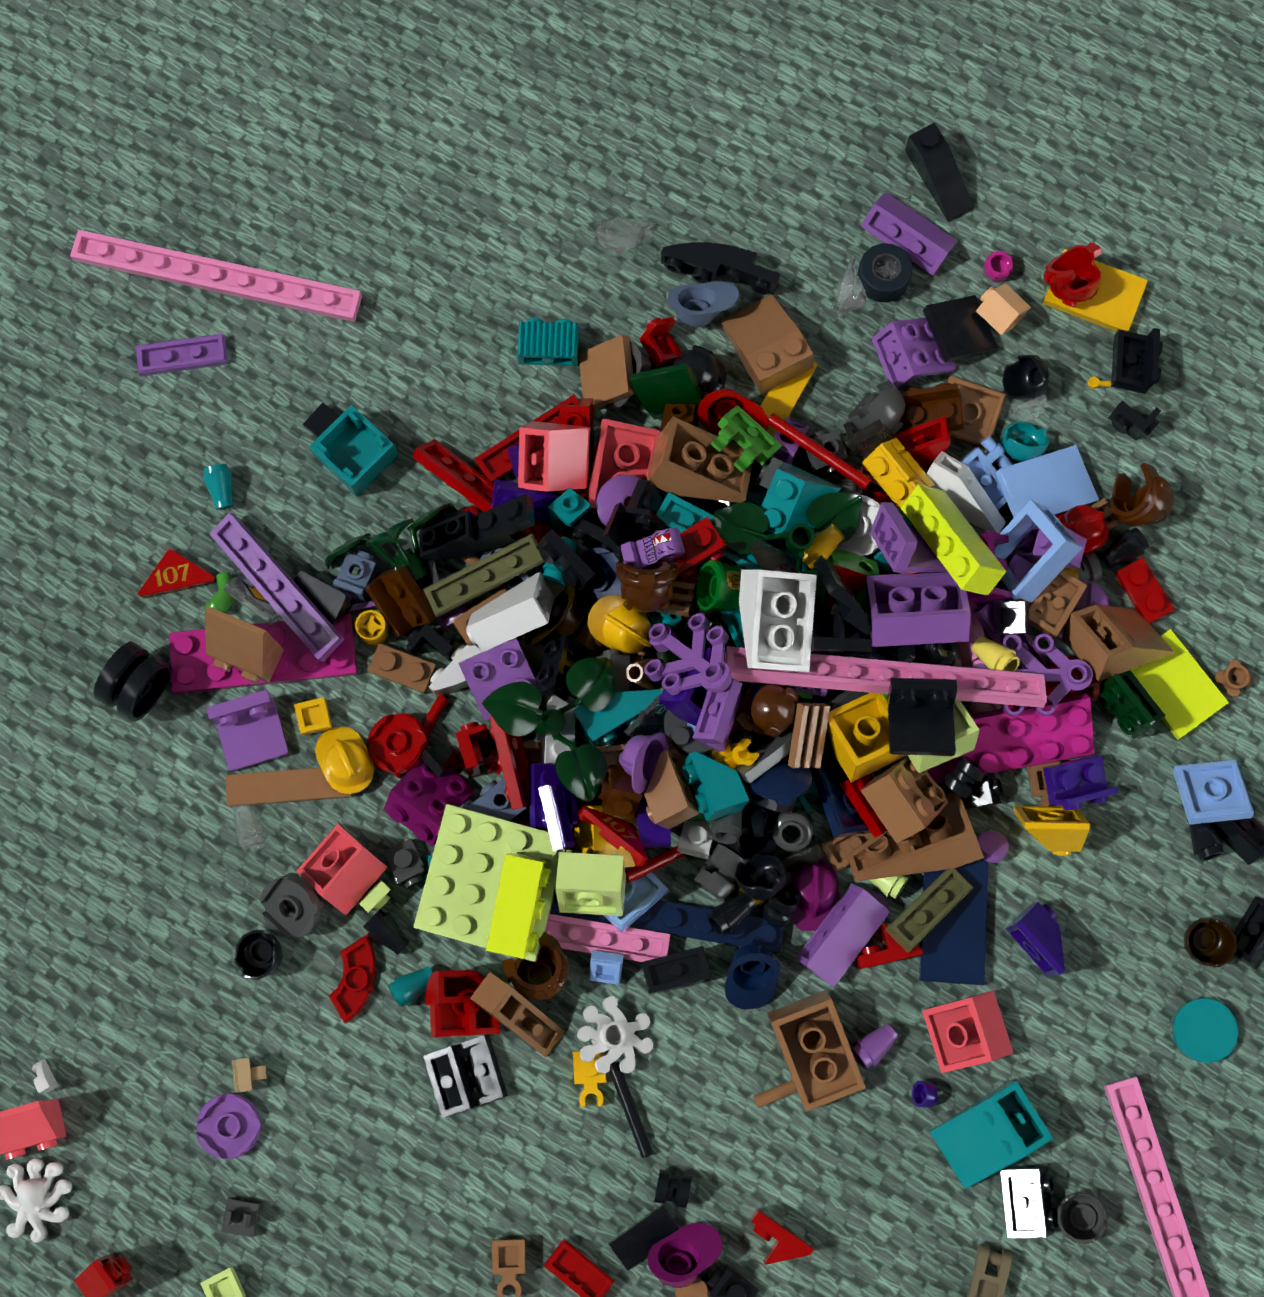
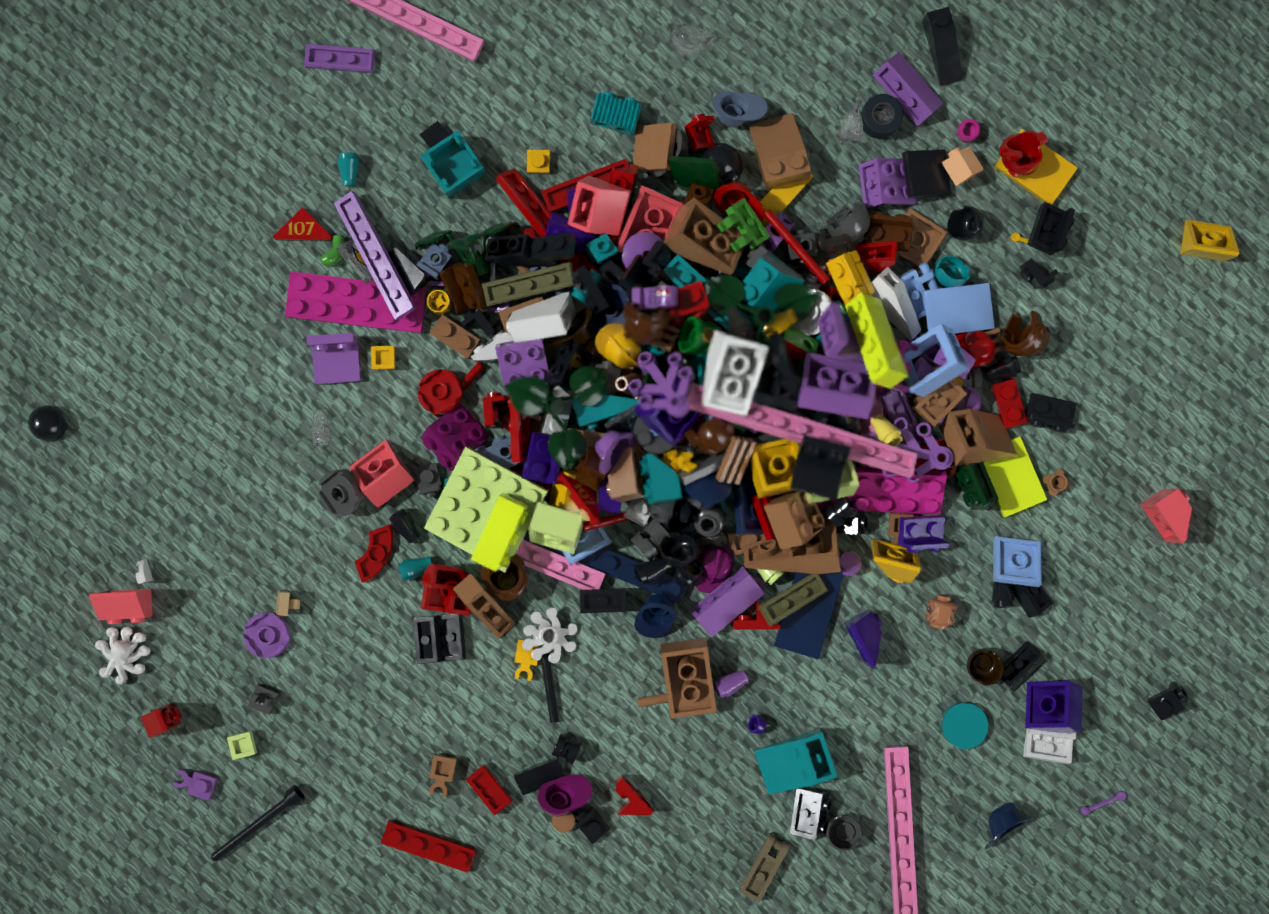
camera: 10 degrees right, 10 degrees up
(132, 681) = (256, 303): black wheel -> none
(240, 646) = (340, 298): medium nougat slope -> none
(258, 954) = (310, 521): black hair -> none
(279, 787) = (356, 404): medium nougat tile -> none
(344, 760) = (399, 395): yellow piece -> none
(376, 897) = (402, 499): yellowish green plate -> none
(442, 761) = (469, 412): black tile -> none
(462, 424) = (538, 161): none -> yellow plate
(556, 817) = (541, 476): plate -> none
(606, 967) = (554, 586): light blue tile -> none
(710, 260) = (751, 76): black slope -> none
(718, 717) = (673, 433): medium lavender panel -> none
(967, 1032) = (798, 689): coral slope -> none
(1011, 617) = (904, 406): black plate -> none
(1030, 409) = (961, 248): clear plate -> none
(1131, 882) = (941, 611): none -> nougat head
(1201, 589) = (1050, 411): none -> black bracket

